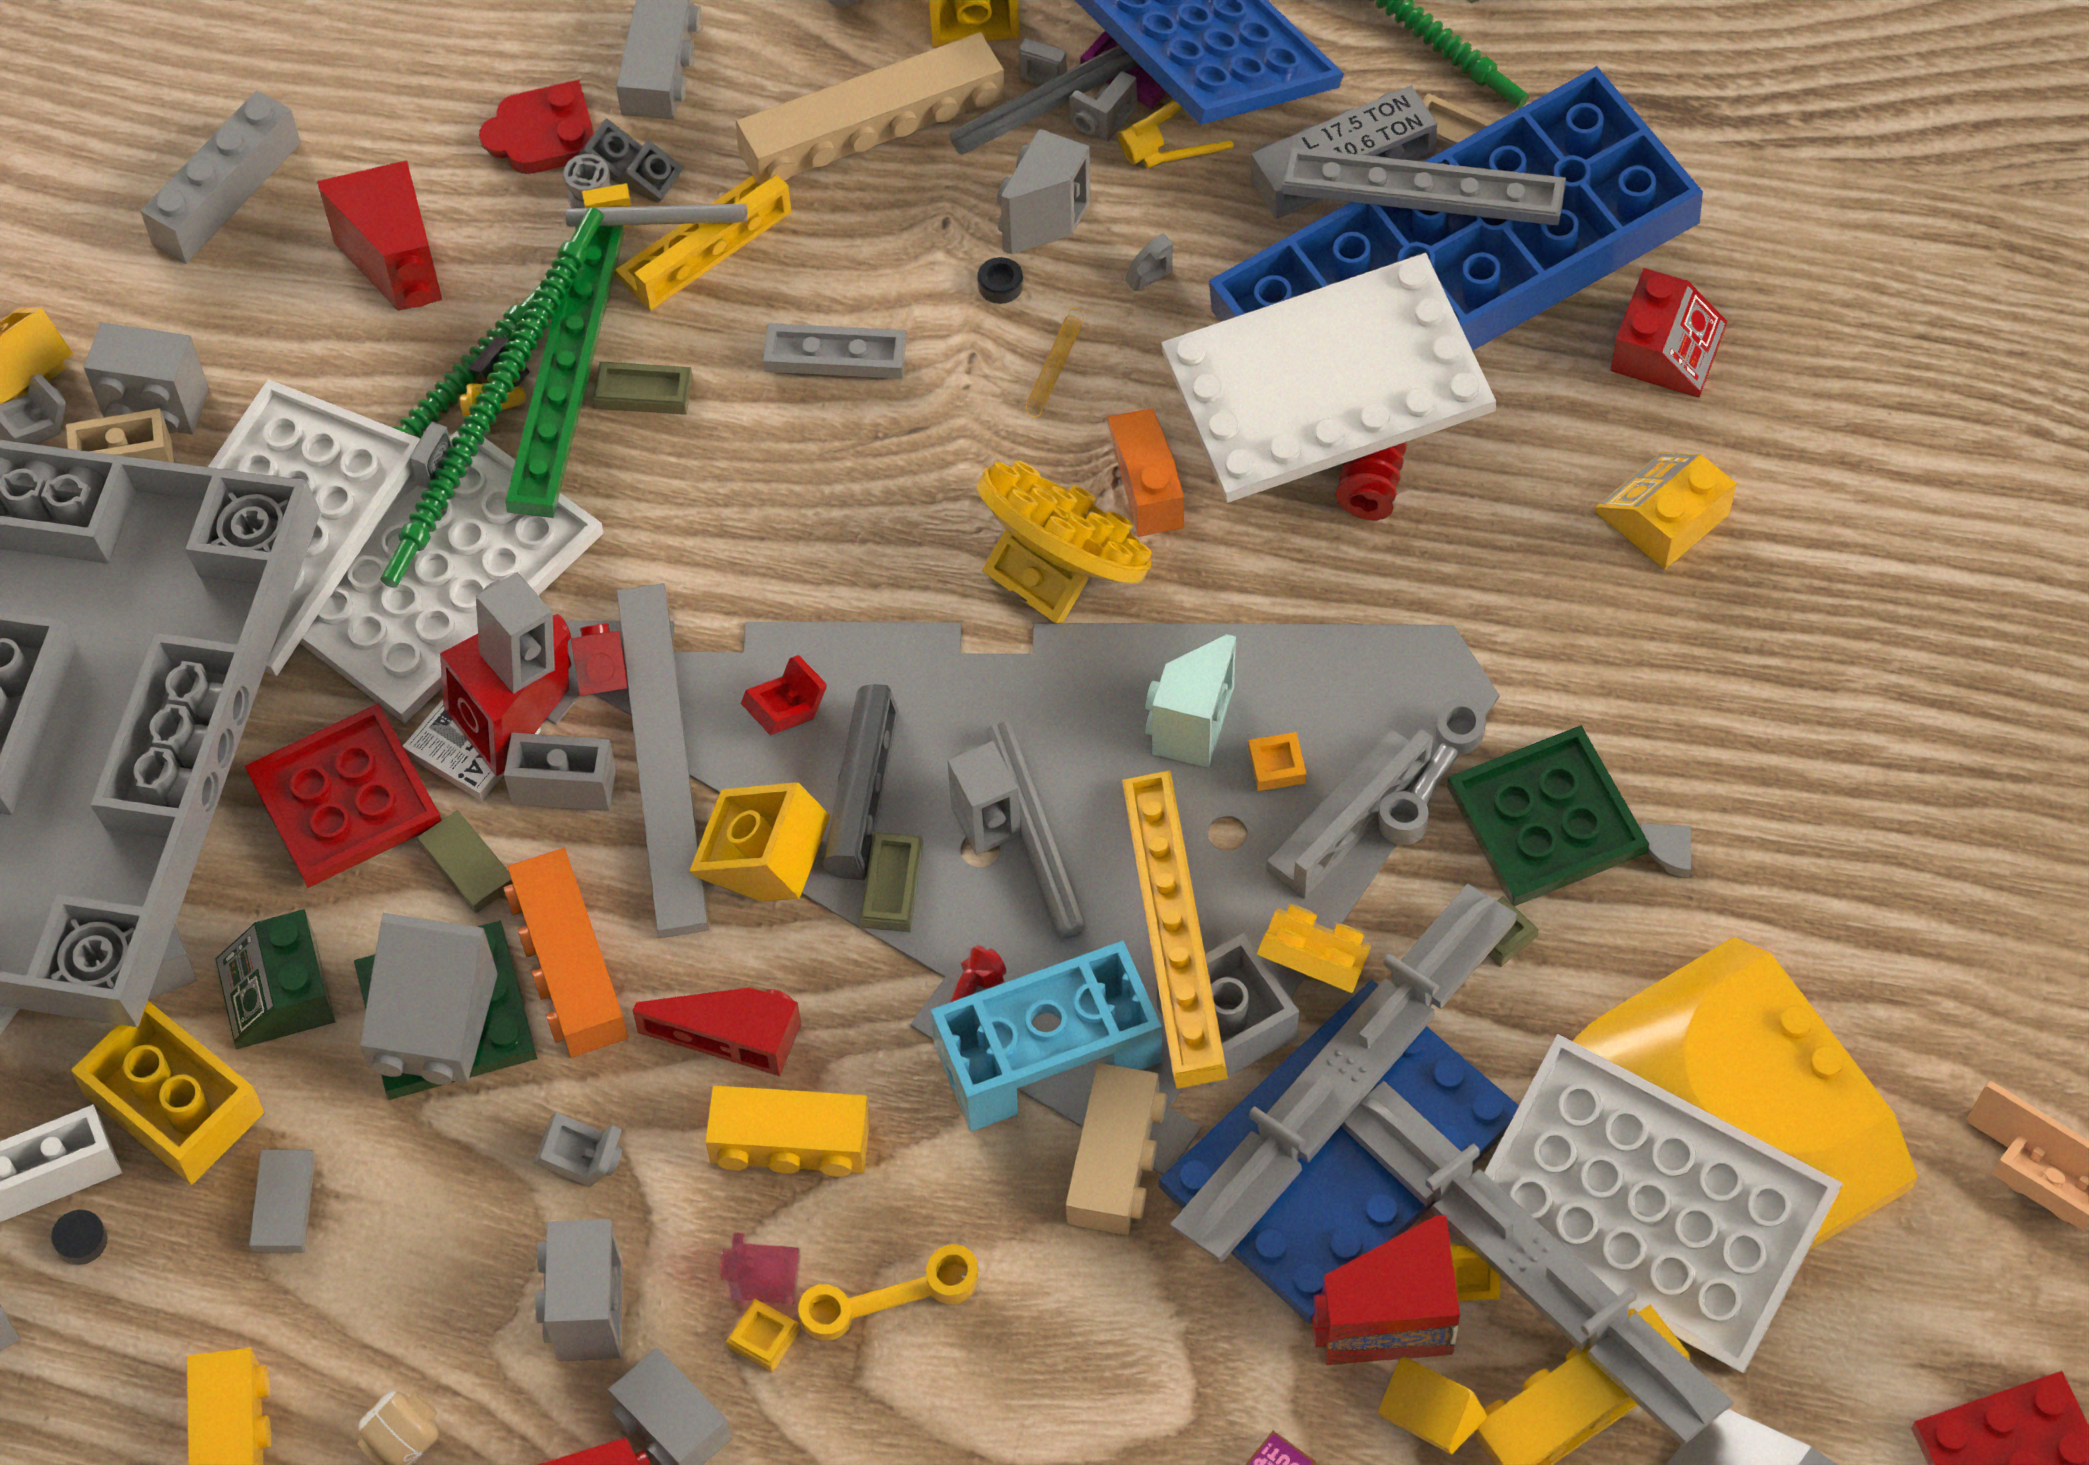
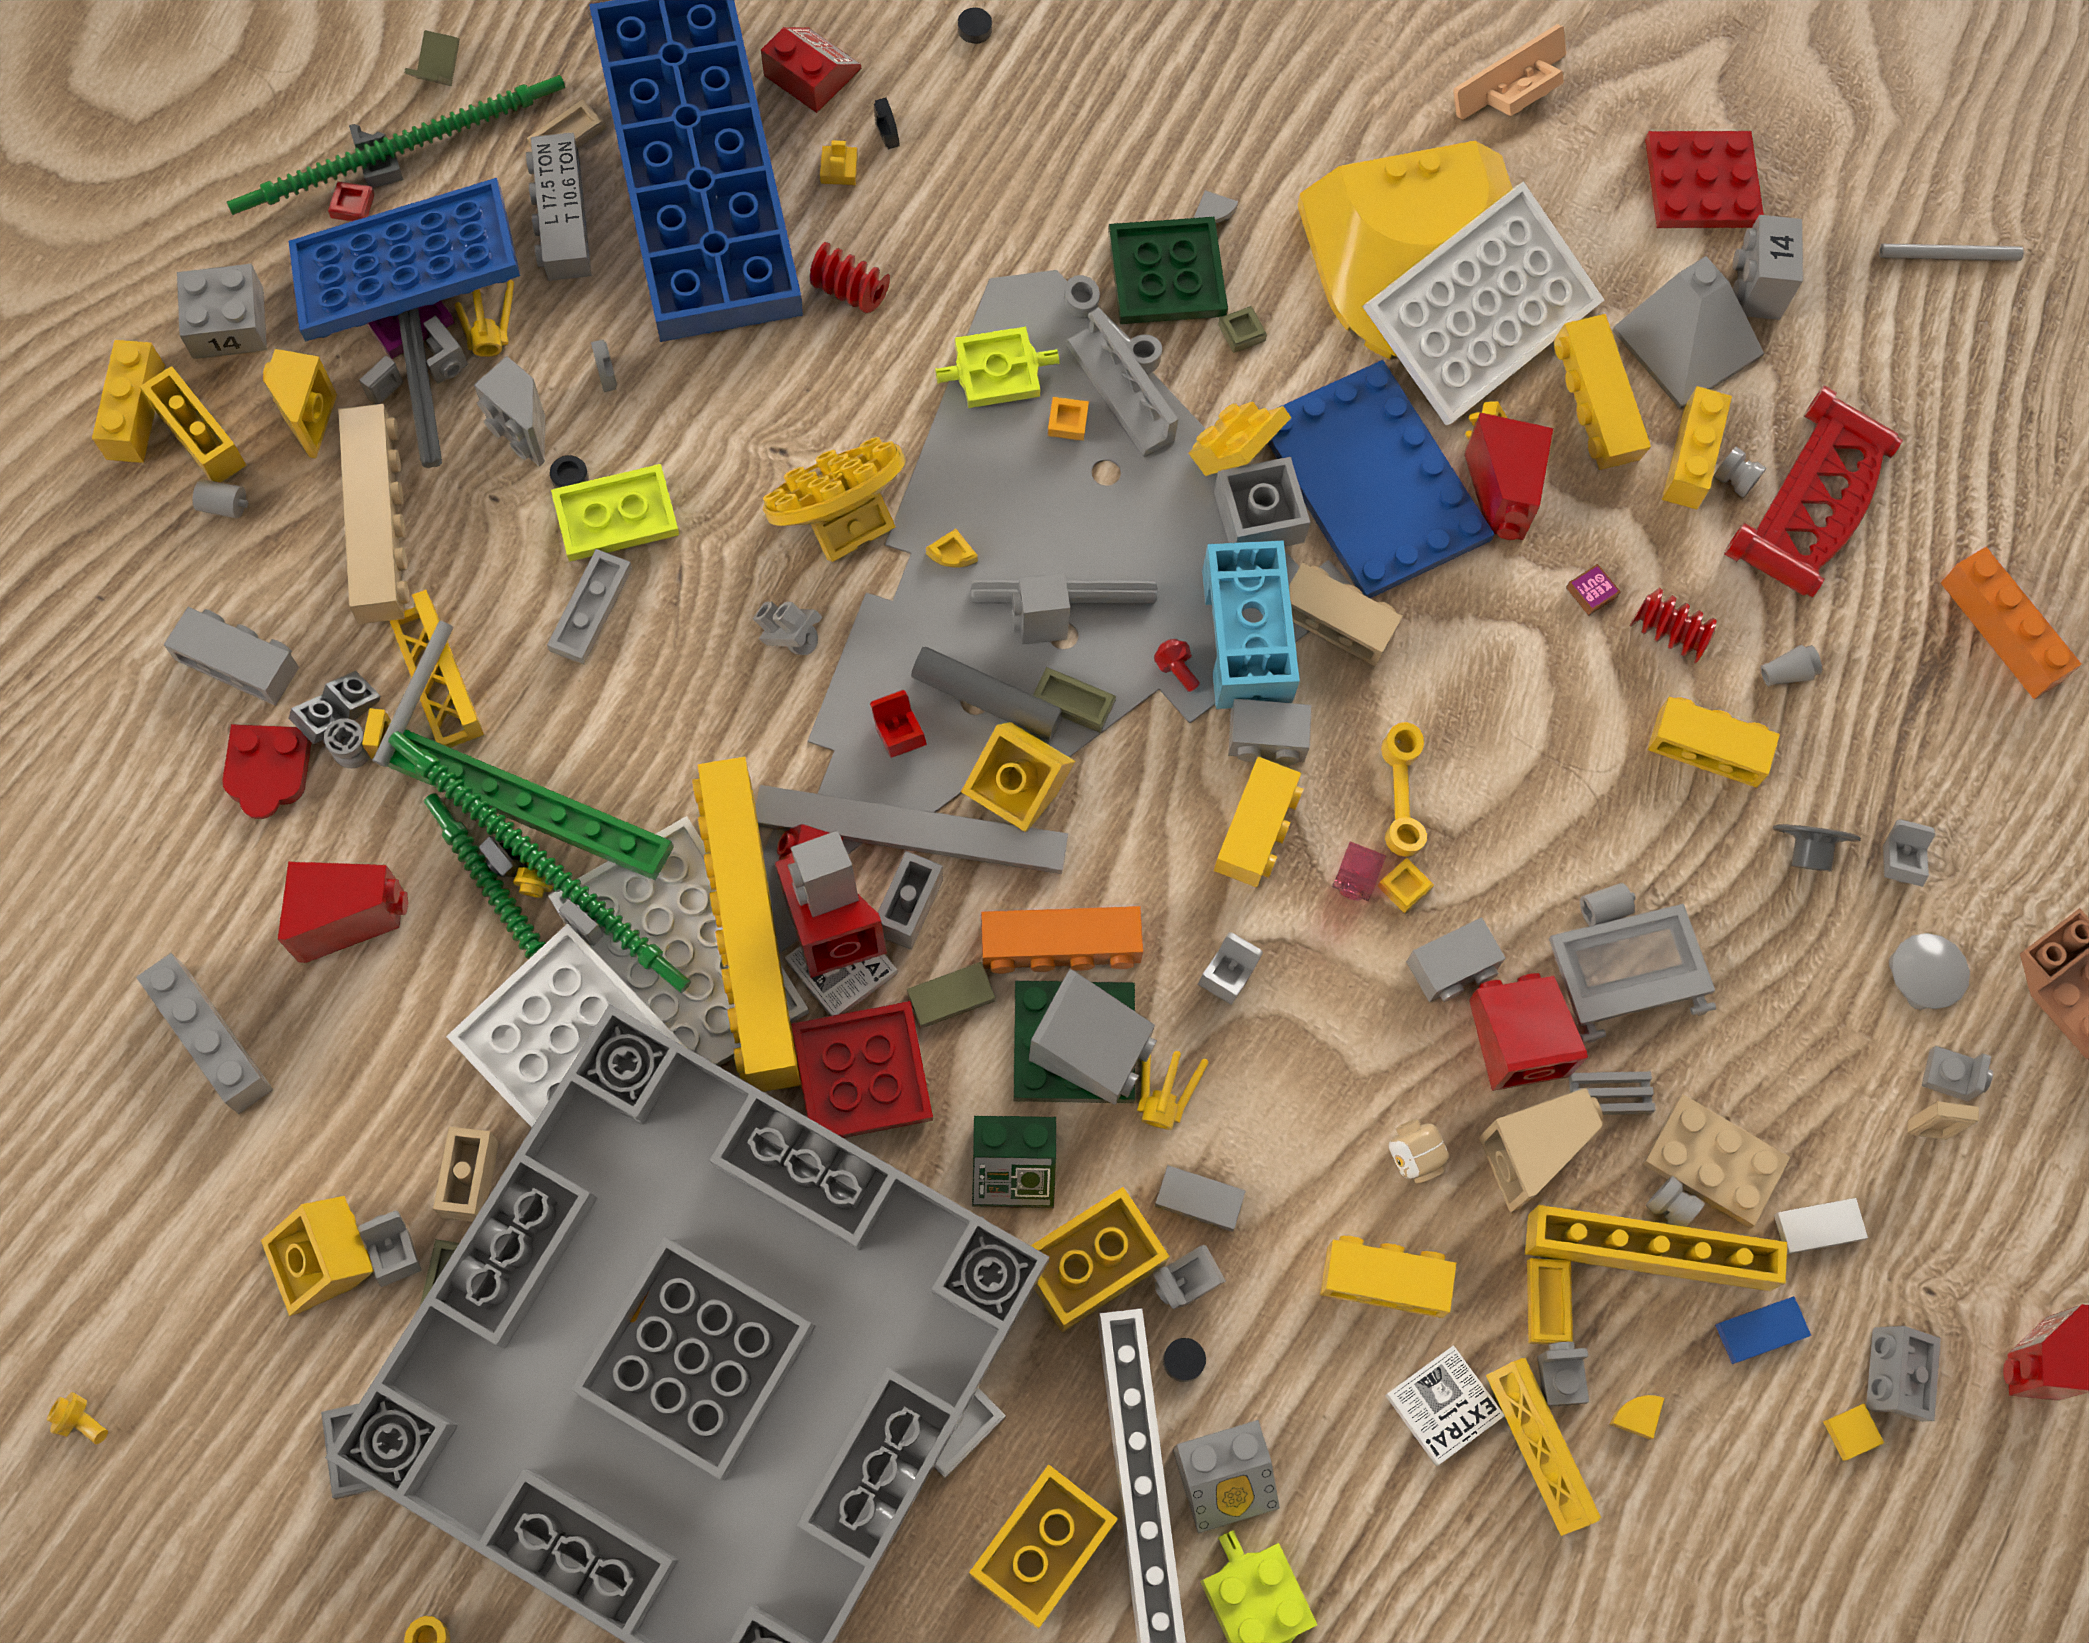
camera: 80 degrees left, 10 degrees up
(147, 371) = (404, 1135): light grey brick -> none
(172, 1205) = (1188, 1278): none -> light grey bracket
(384, 1120) = (1161, 1108): none -> yellow plant
(399, 629) = (748, 934): none -> yellow brick
(582, 1290) = (1355, 990): light grey brick -> none
(642, 388) = (562, 755): olive tile -> none
(729, 1024) = (1166, 828): red slope -> none
(870, 548) = (788, 627): none -> light grey hips
(918, 1110) = (1269, 731): none -> light grey brick
(964, 336) = (615, 512): none -> neon yellow plate
(1048, 693) = (952, 551): none -> yellow tile
(1055, 369) = (673, 469): yellow piece -> none
(1147, 472) = (787, 424): orange slope -> none
(1174, 931) = (1197, 514): yellow tile -> none
(1192, 702) = (1016, 448): light aqua slope -> none
(1318, 663) = (997, 367): none -> neon yellow plate
(1327, 377) = (779, 271): white plate -> none
(1343, 1072) = (1332, 452): light grey piece -> none
(1424, 186) = (642, 151): light grey tile -> none
(1431, 1406) = (1586, 480): yellow slope -> none
(1537, 1264) = (1510, 381): light grey piece -> none
(1540, 414) = (838, 164): none -> yellow tile
(1623, 444) = (886, 123): none -> black tile
(1669, 505) = (948, 112): yellow slope -> none
(1821, 496) = (974, 25): none -> black tile

